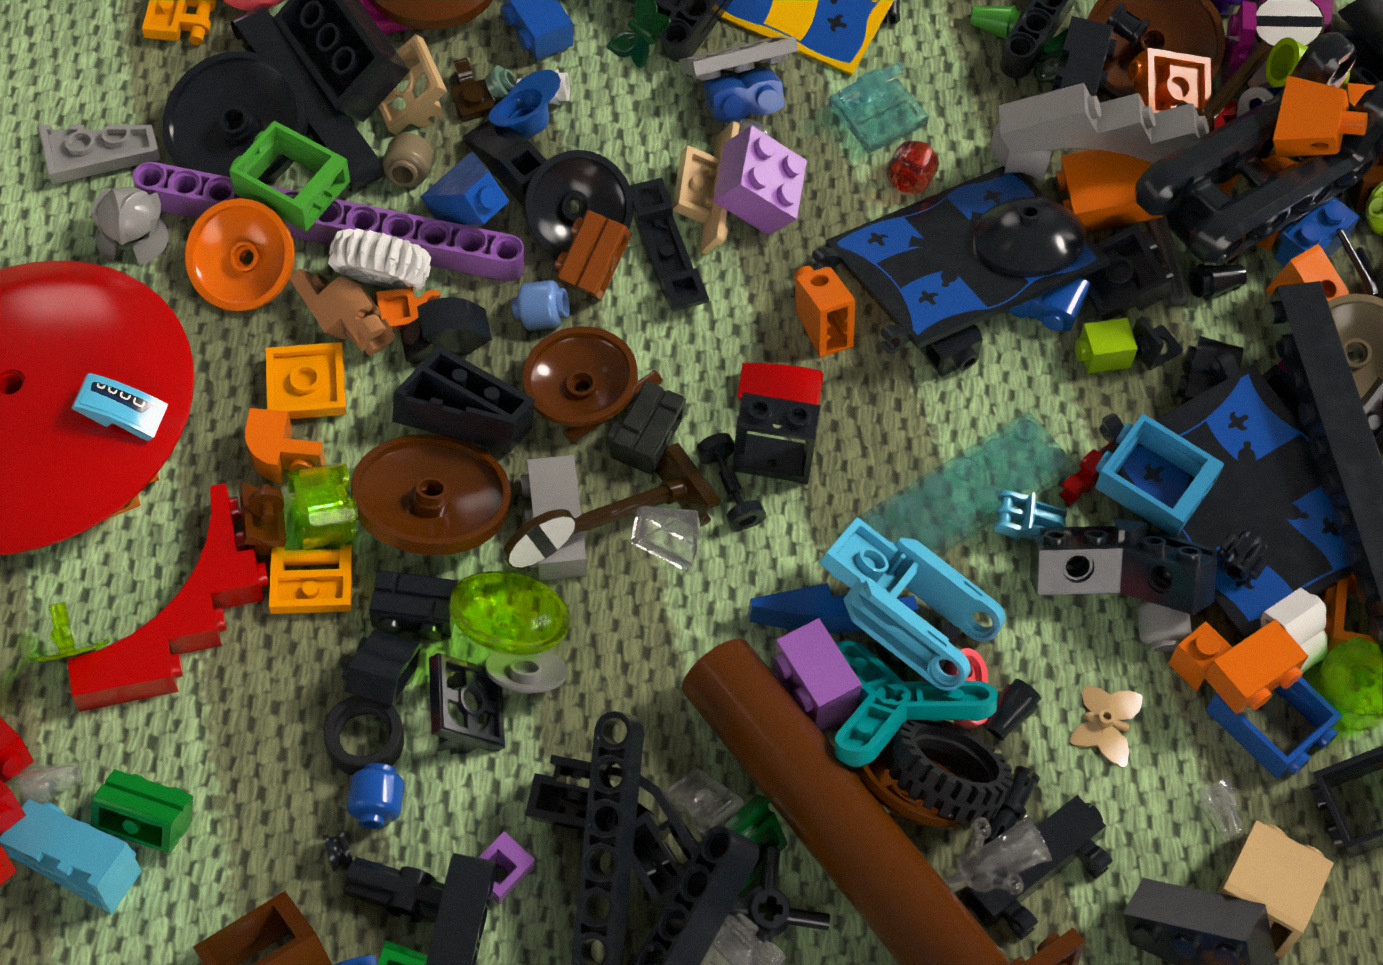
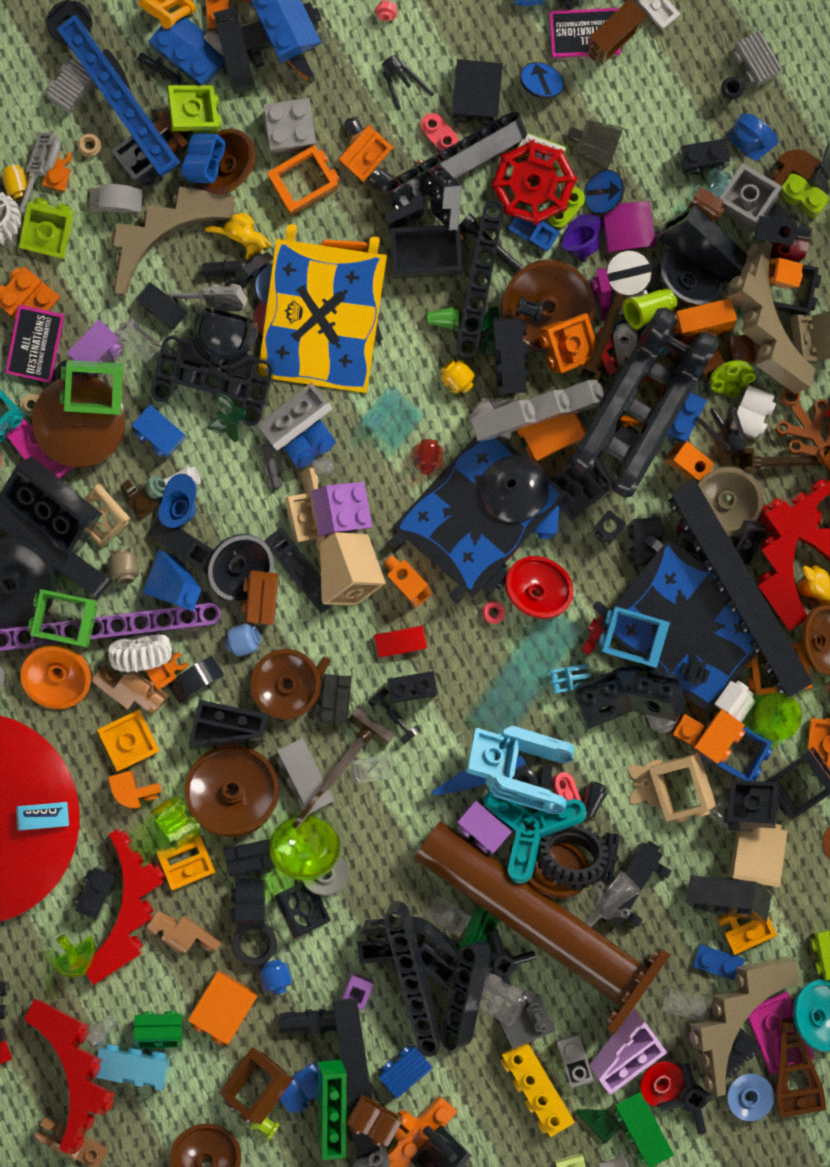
camera: 15 degrees left, 25 degrees up
(148, 568) = (96, 892): none -> black brick
(254, 677) = (182, 934): none -> medium nougat plate
(262, 517) = (145, 839): reddish brown hips -> none
(265, 816) = (222, 1008): none -> orange brick
(337, 849) = (268, 1011): black bush -> none
(677, 113) = (270, 466): none -> dark grey axle
(738, 258) = (348, 569): none -> tan slope
(942, 388) = (501, 612): none -> coral plate
(990, 87) = (457, 376): none -> yellow head
(1023, 377) = (545, 580): none -> red dish
(1106, 345) = (580, 543): lime brick -> none
(1167, 694) = (700, 782): none -> tan window
(1284, 790) = (751, 805): none -> black plate
(1314, 119) = (663, 371): orange torso -> none

